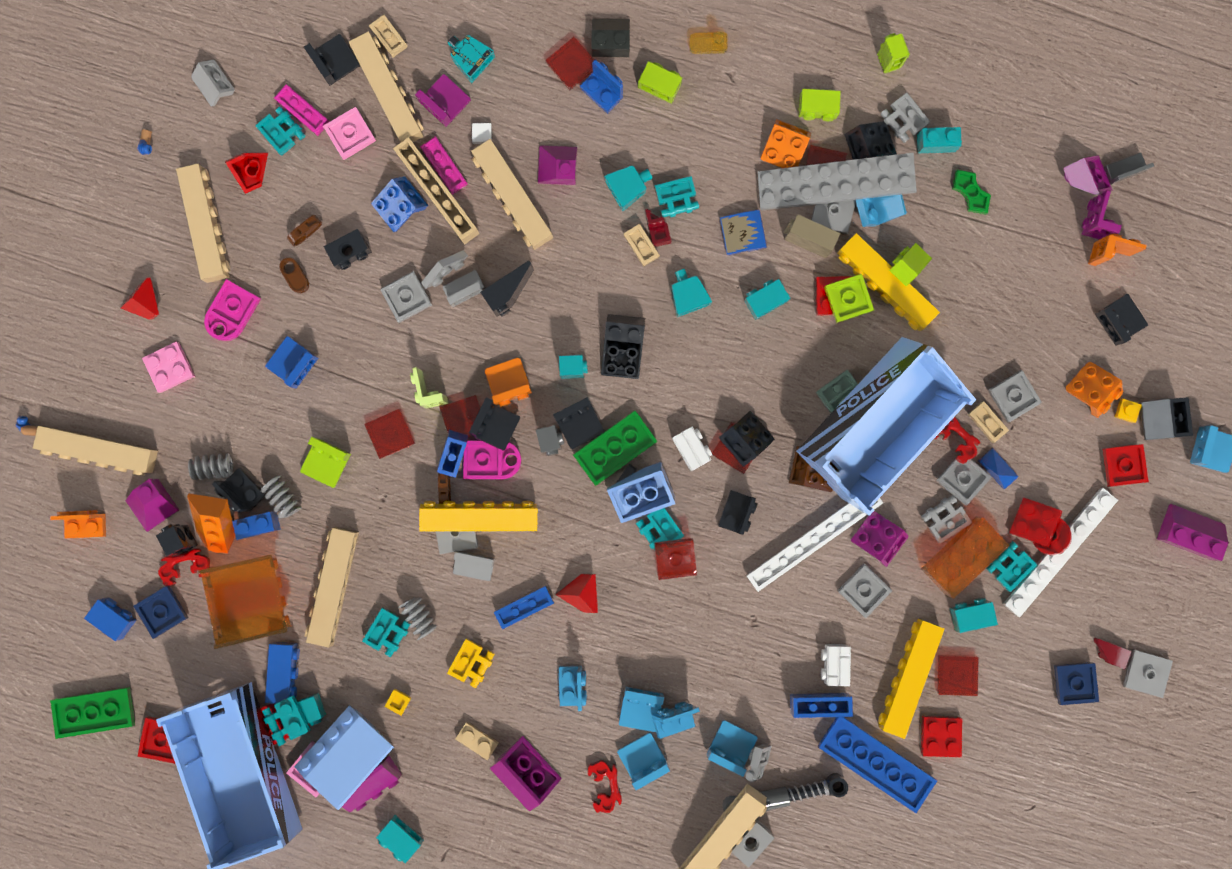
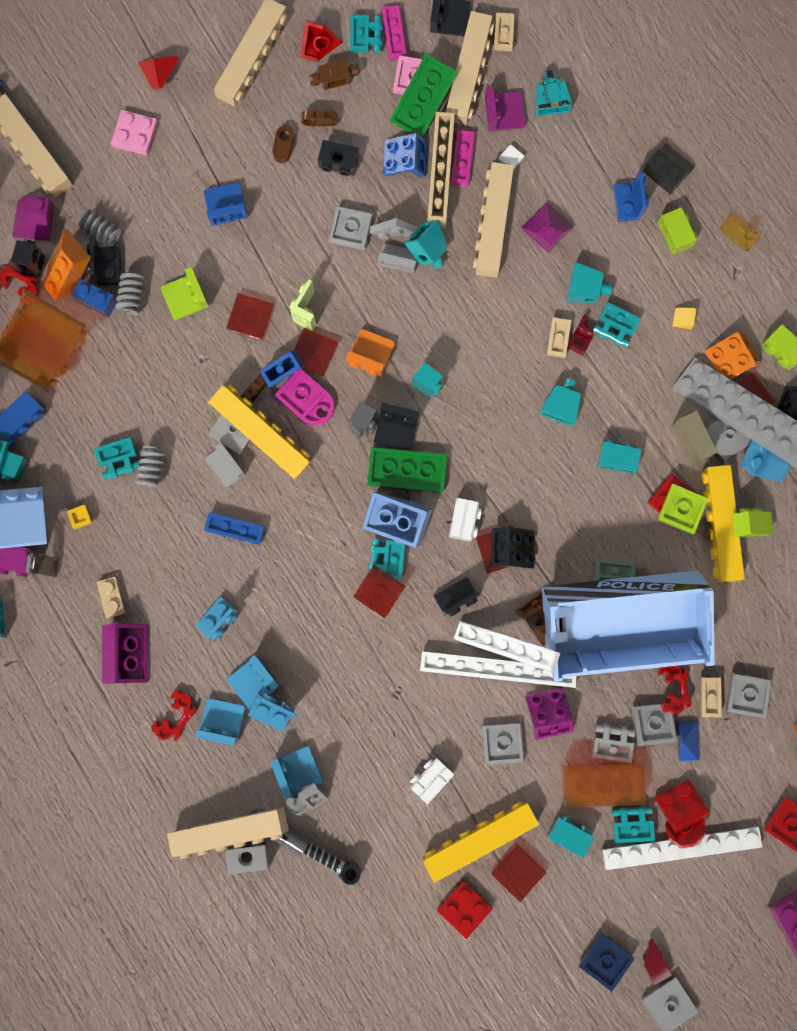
camera: 40 degrees right, 5 degrees down
(231, 309) = (216, 131): dark pink tile -> none
(285, 185) = (334, 74): none -> reddish brown piece
(332, 587) = (107, 390): tan brick -> none
(371, 143) = (423, 96): none -> green plate
(403, 764) = (42, 564): none -> clear smoke tile
(466, 658) = (156, 530): yellow plate -> none
(478, 259) = (428, 244): none -> teal torso
(494, 425) = (331, 373): black bracket -> none
(505, 291) = (429, 284): black slope -> none
(571, 63) = (622, 162): clear red tile -> none
(581, 593) = (286, 556): red slope -> none
(623, 346) = (479, 400): black slope -> none
(723, 146) = (684, 318): none -> yellow slope
(743, 232) = (644, 393): slope -> none
(809, 519) = (507, 646): none -> white tile
(821, 705) = (392, 800): blue brick -> none
(877, 763) = (396, 885): blue plate -> none

